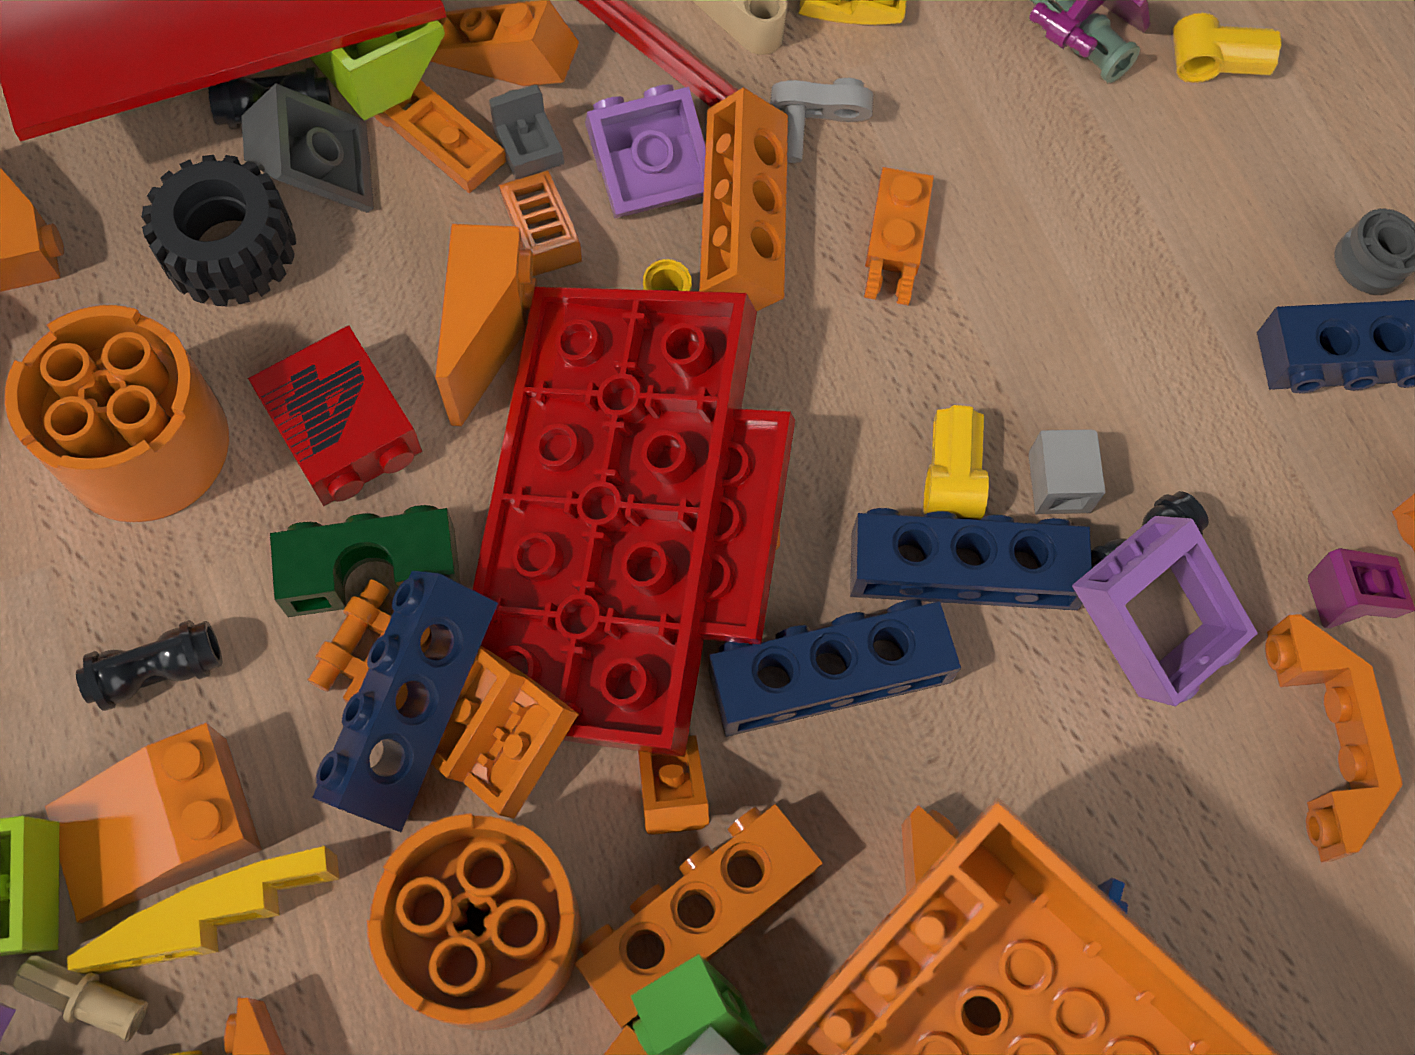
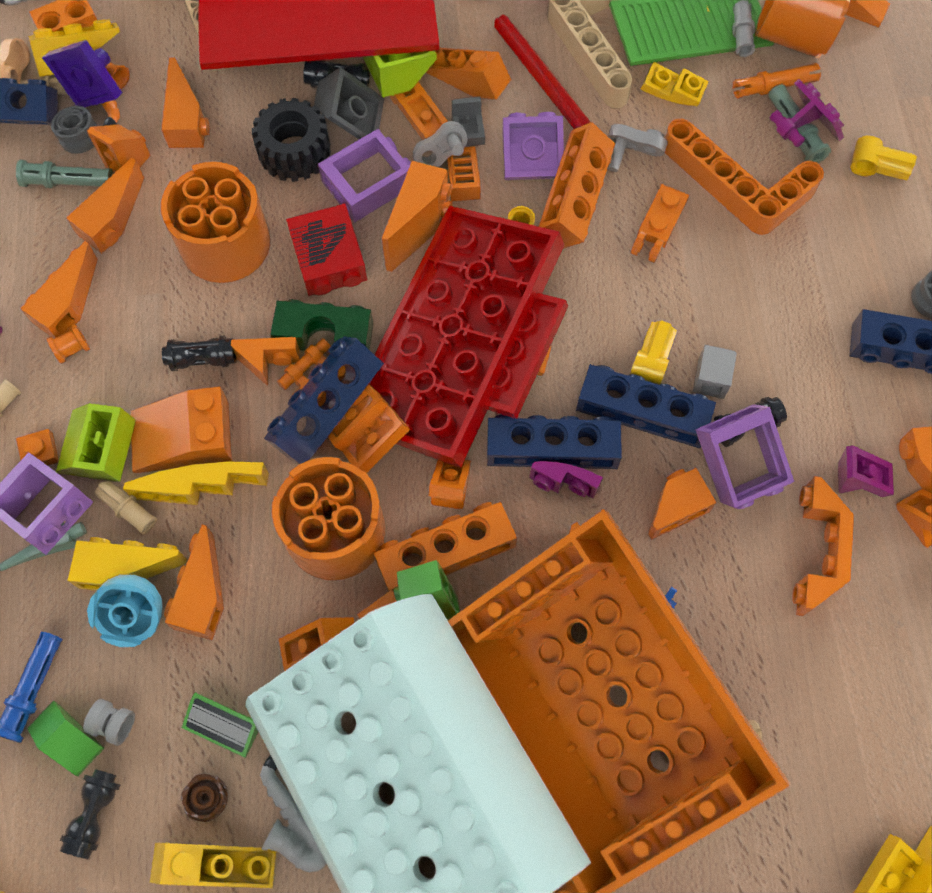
camera: 20 degrees right, 0 degrees up
(260, 637) = (260, 352): none -> orange slope
(401, 295) = (374, 196): none -> medium lavender window
(499, 173) = (447, 141): none -> light grey piece
(850, 728) = (554, 474): none -> magenta slope
(1000, 141) = (729, 181): none -> orange beam
(1076, 717) = (681, 501): none -> orange slope

